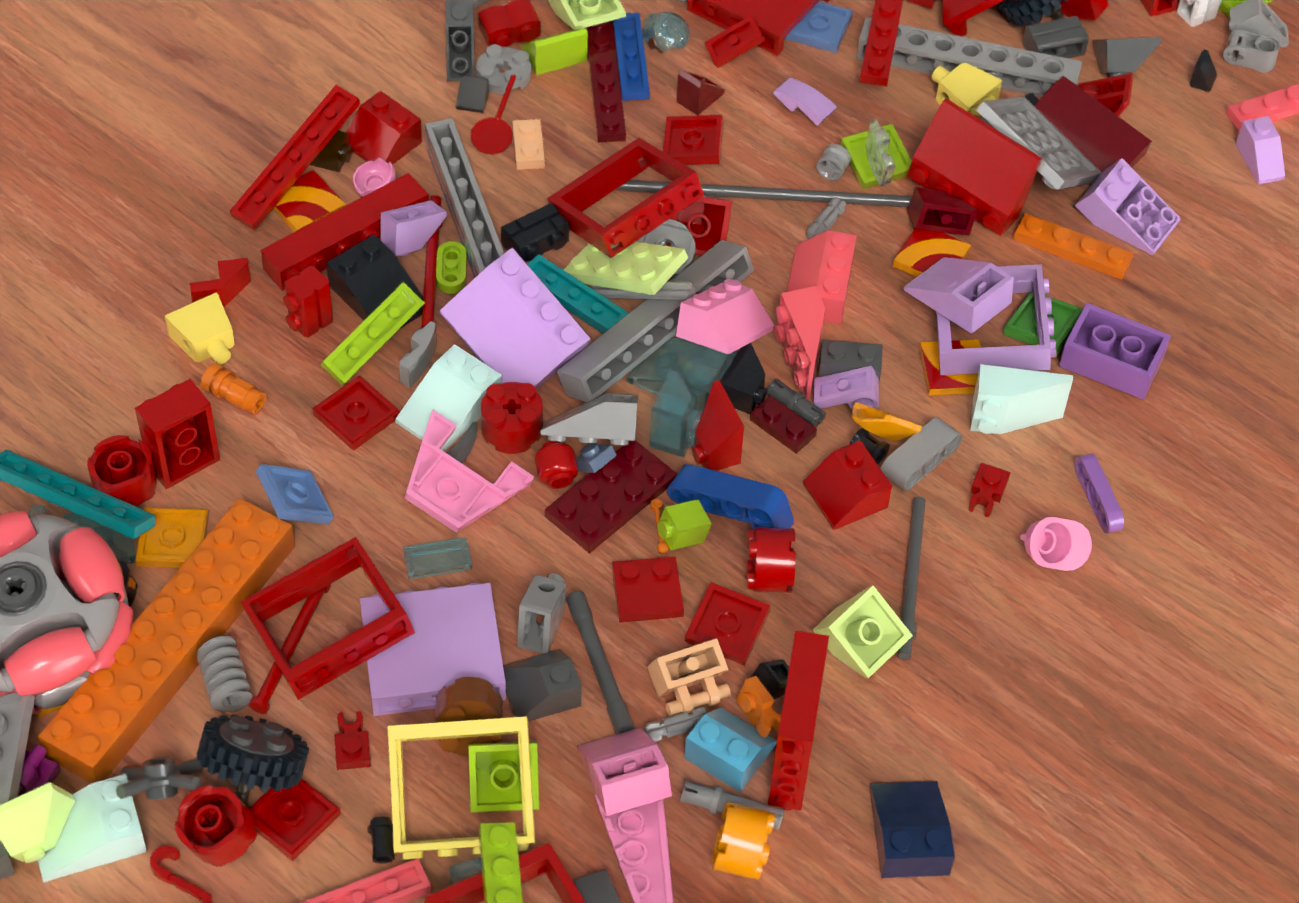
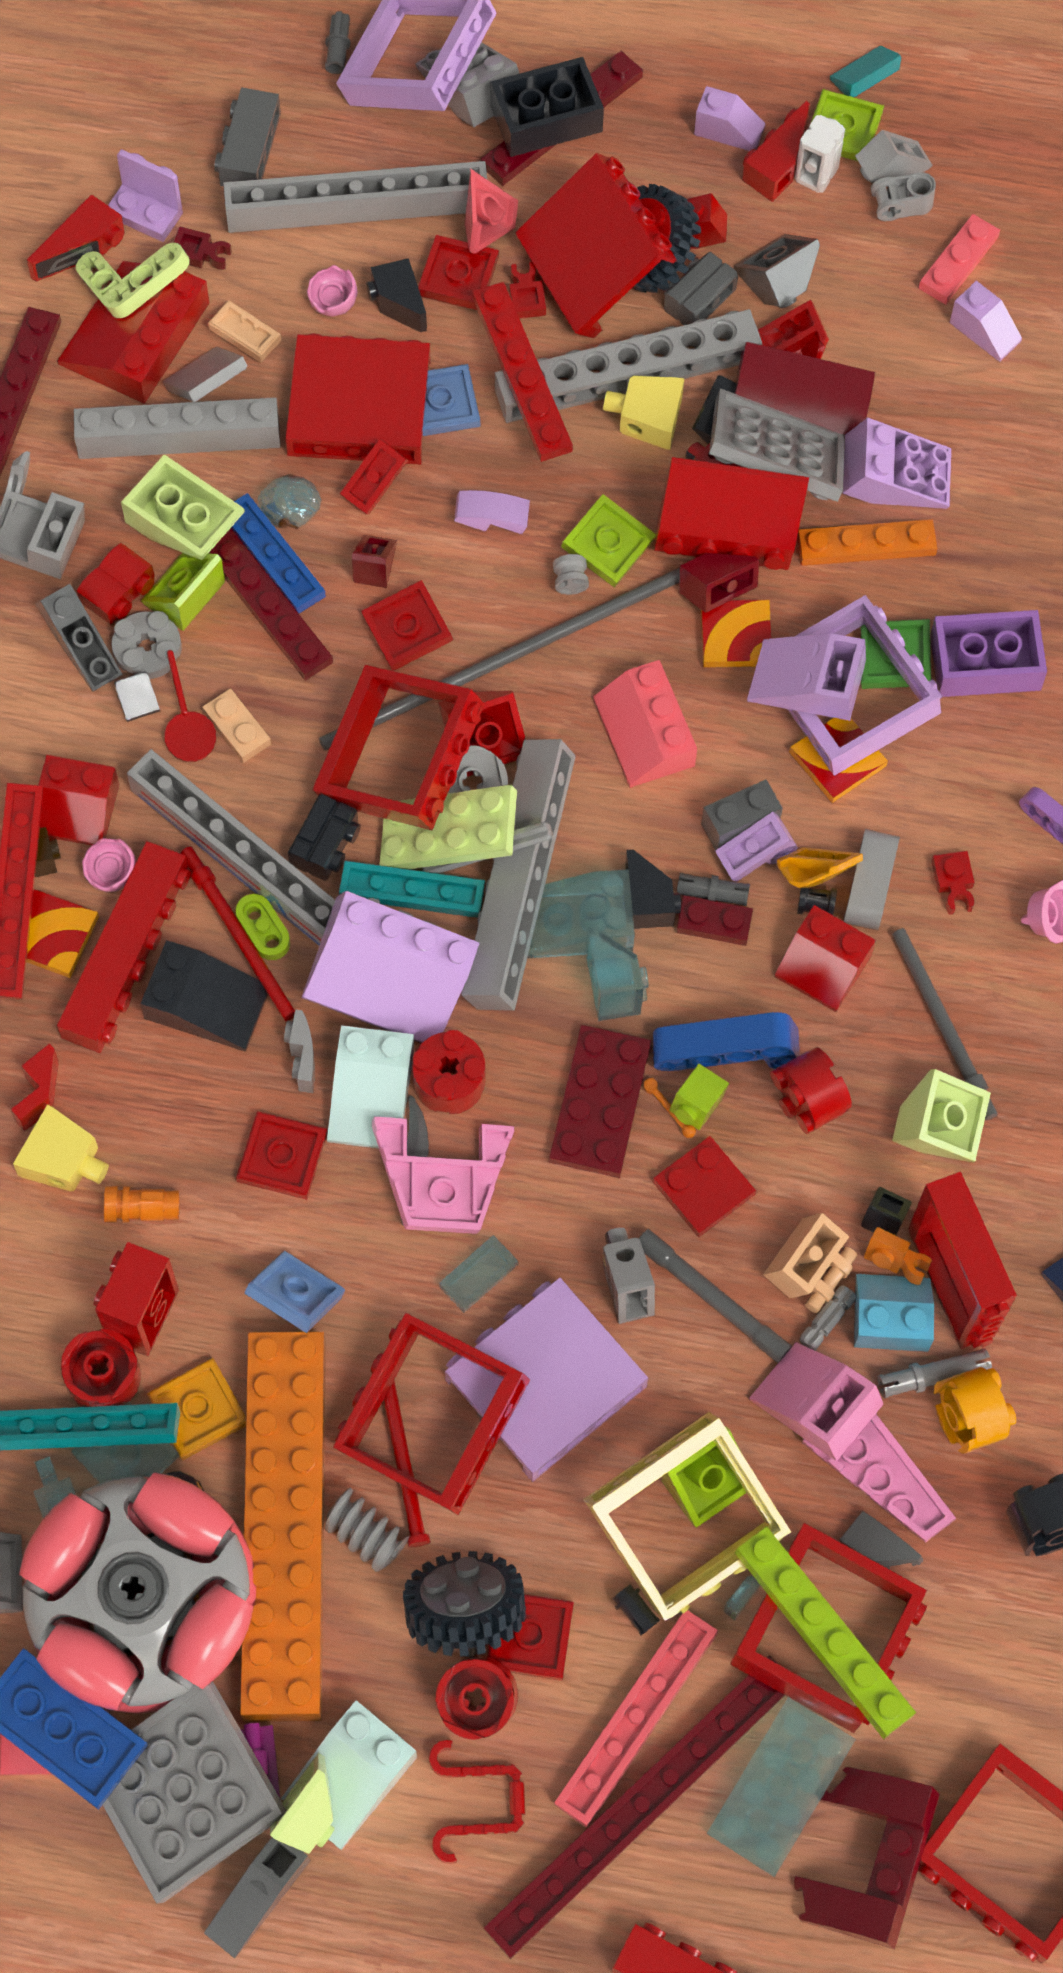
camera: 30 degrees left, 15 degrees up
(160, 778) = (388, 1681): dark grey bar -> none
(308, 302) = (152, 1060): red brick -> none
(352, 744) = (537, 1528): red plate -> none
(372, 334) = (240, 1056): lime plate -> none
(410, 226) = (192, 904): lavender slope -> none
(464, 701) = (635, 1429): dark orange brick -> none
(542, 685) = (674, 1351): dark grey slope -> none
(556, 464) = (528, 1101): red head -> none
(594, 457) = (560, 1071): sand blue plate -> none
(604, 417) = (539, 1030): light grey slope -> none
(719, 432) = (671, 972): red slope -> none
(723, 317) = (594, 838): bright pink slope -> none
(729, 618) = (806, 1180): red plate -> none
(800, 333) = (676, 807): coral slope -> none
(826, 217) = (604, 648): light grey axle -> none
(876, 147) = (606, 532): clear slope -> none
(1017, 398) = (921, 771): light aqua slope -> none
(1204, 73) = (871, 251): black slope -> none

